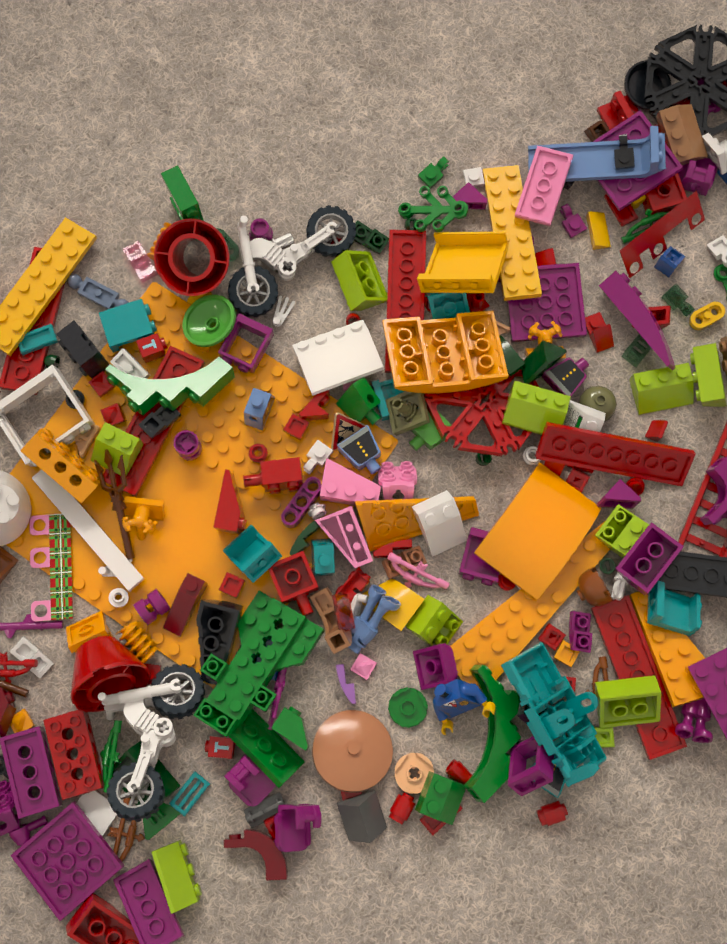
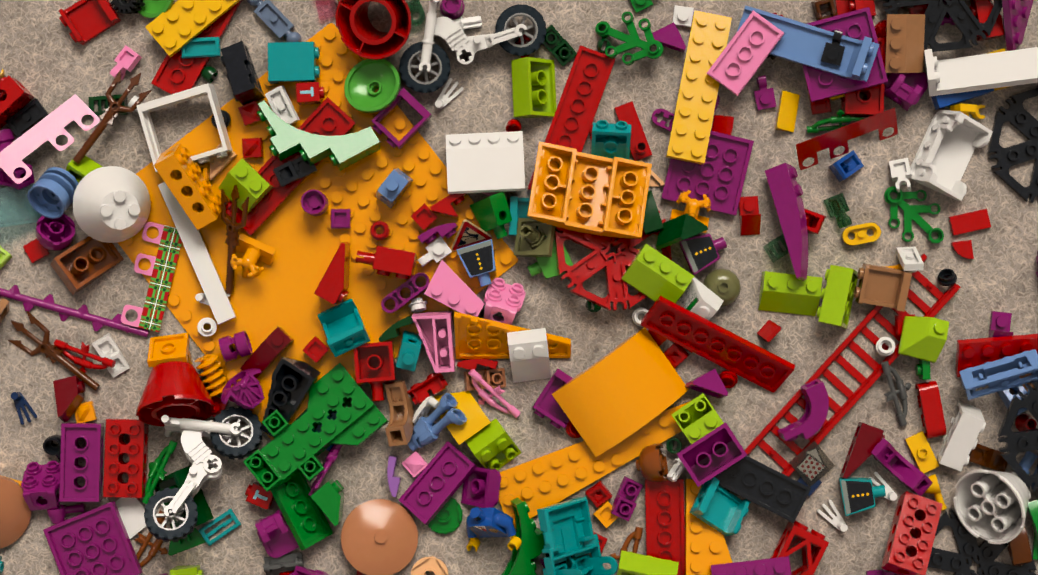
camera: 20 degrees right, 10 degrees up
(175, 647) = (246, 392): none -> magenta piece
(217, 454) = (340, 218): none -> magenta tile
(319, 432) = (445, 230): none -> magenta slope
(343, 611) = (410, 411): clear red piece -> none
(392, 676) = (437, 483): none -> magenta plate
(464, 262) = (639, 108): yellow panel -> none

